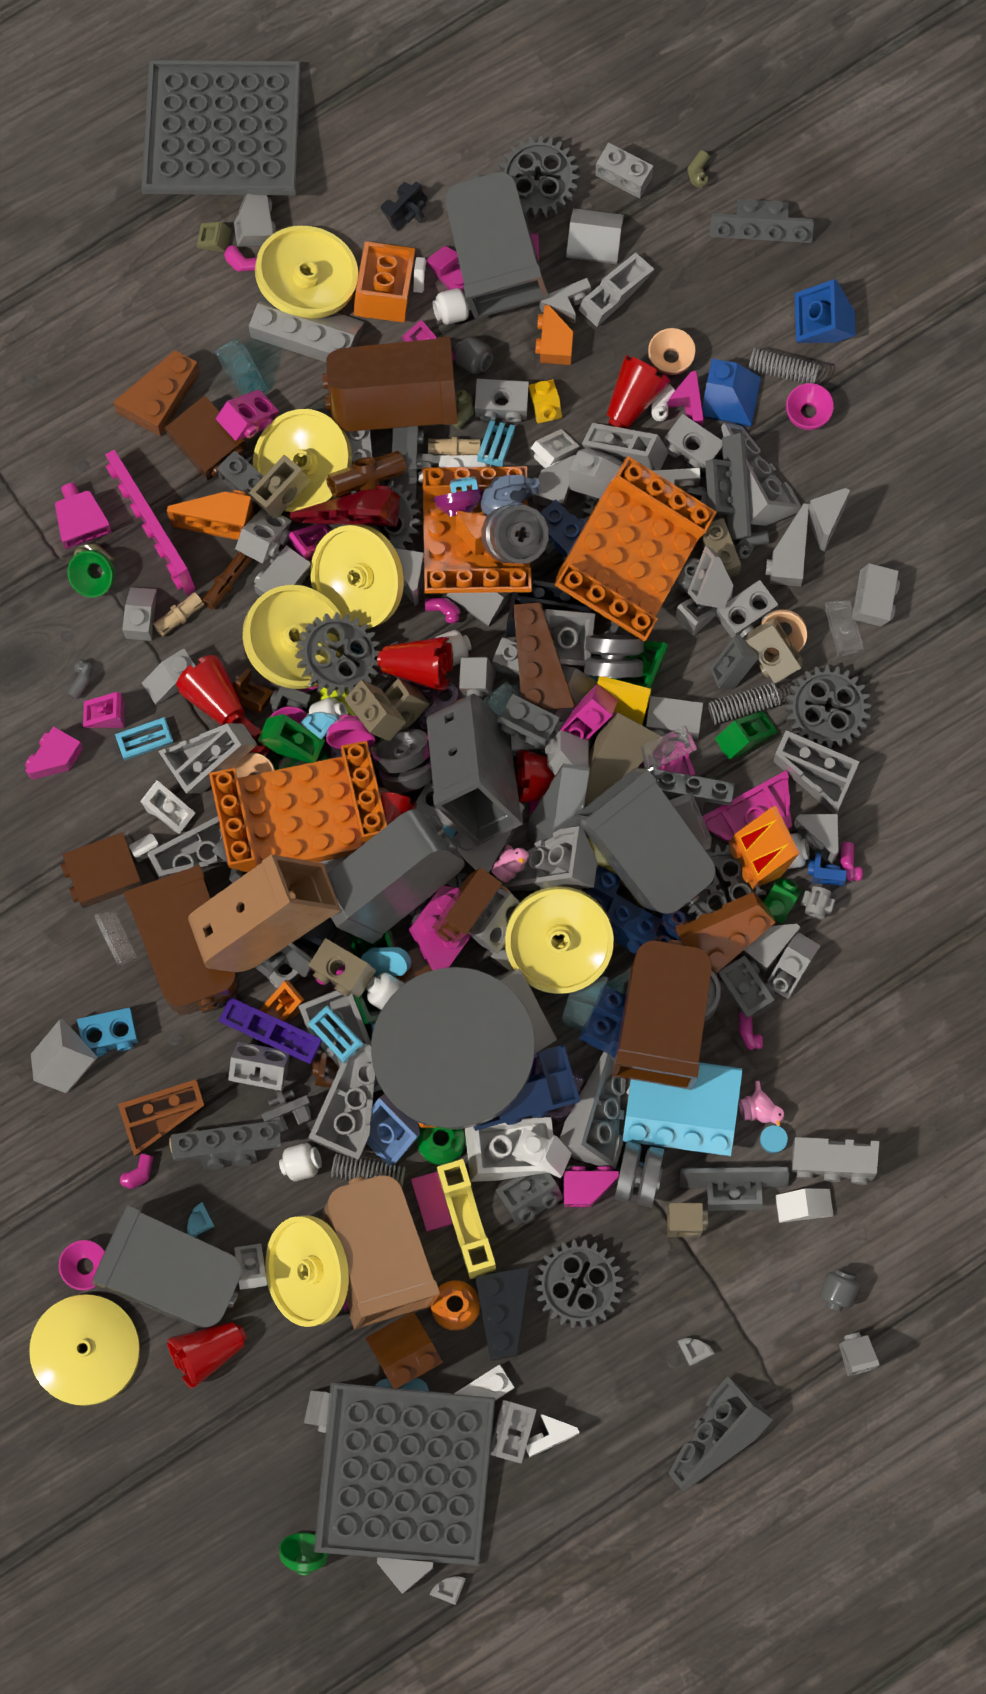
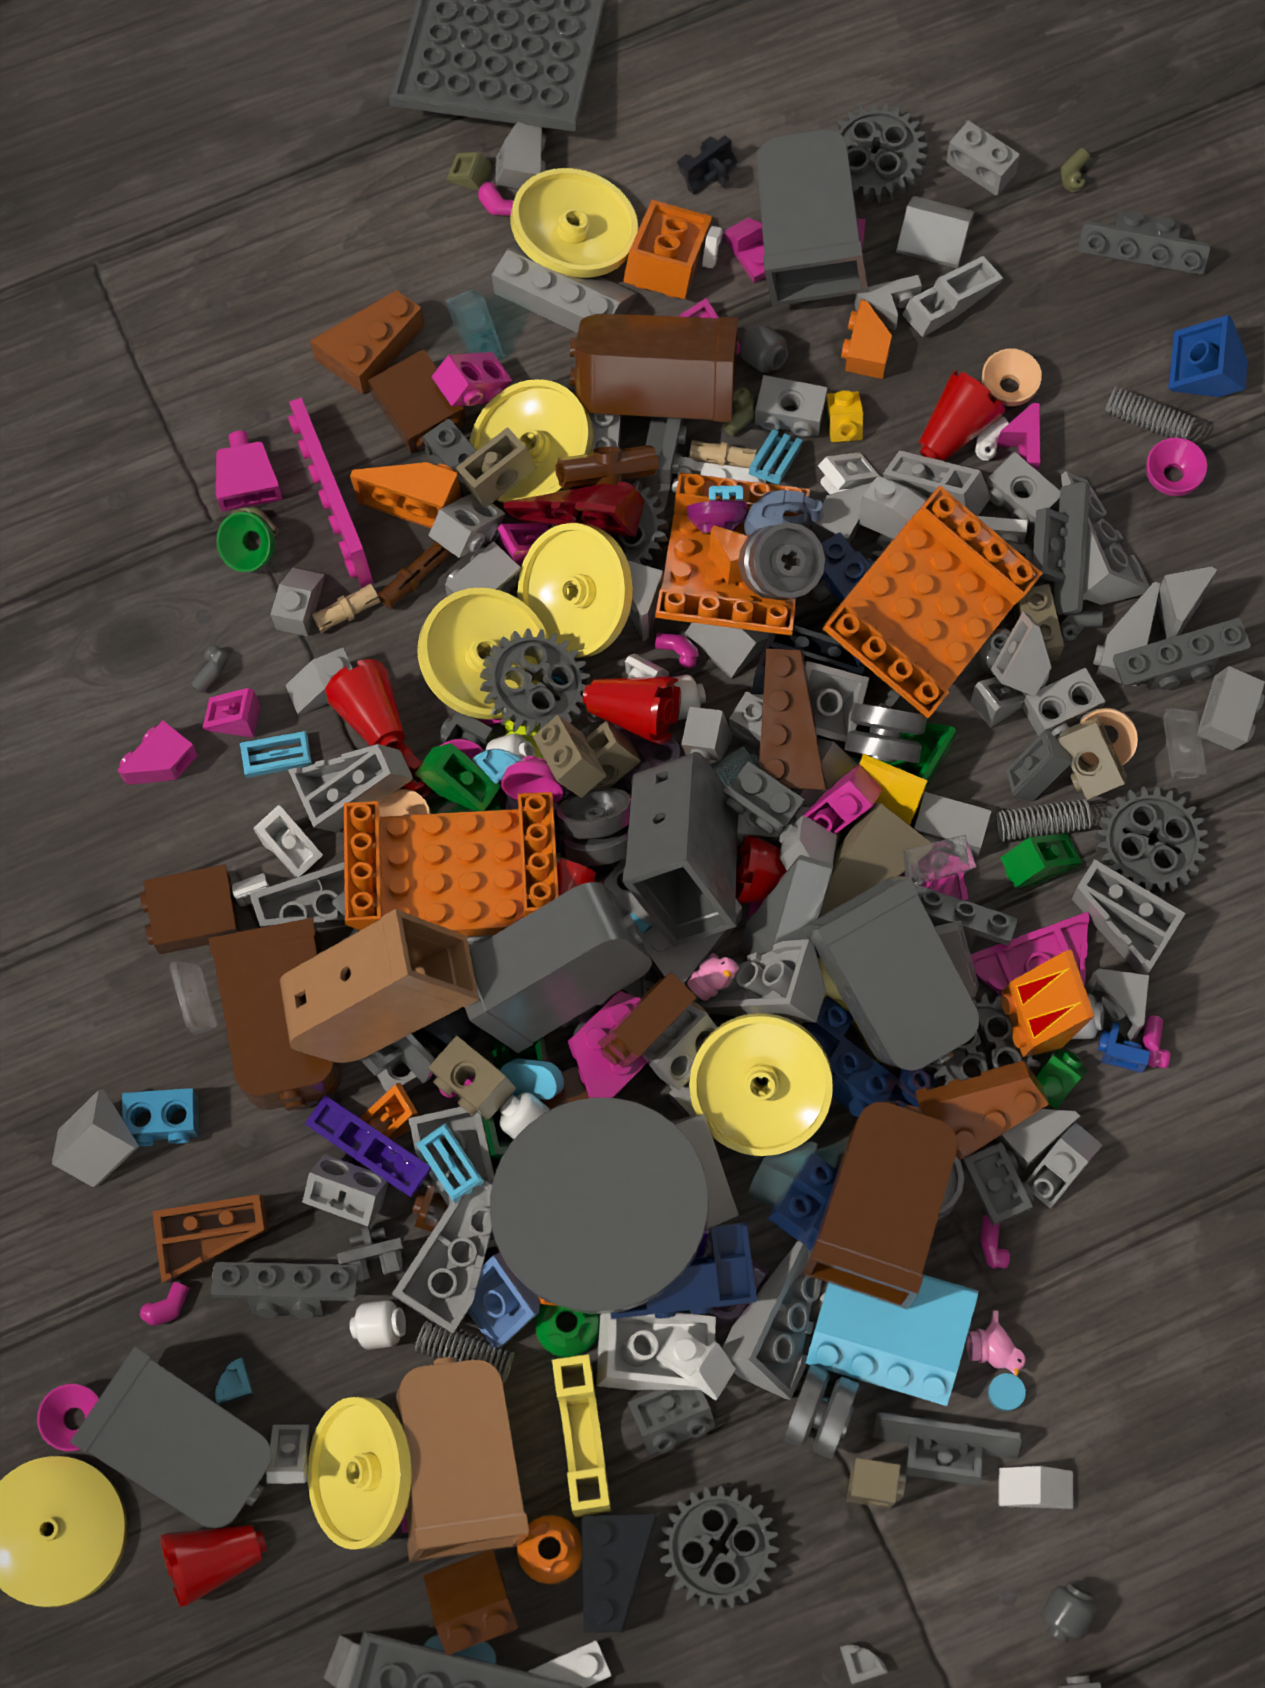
camera: 10 degrees right, 5 degrees down
(250, 693) = (418, 717): reddish brown bracket -> none
(419, 631) = (640, 667): none -> white slope
(431, 1201) = (541, 1405): dark pink tile -> none
(451, 306) = (745, 287): white head -> none
(586, 1187) = (749, 1418): dark pink slope -> none
(730, 393) = (1078, 437): blue slope -> none
(818, 902) = (1106, 1088): light grey gear -> none
(832, 559) = (1182, 656): none -> dark grey bracket
(834, 1160) = (1086, 1433): light grey wedge -> none

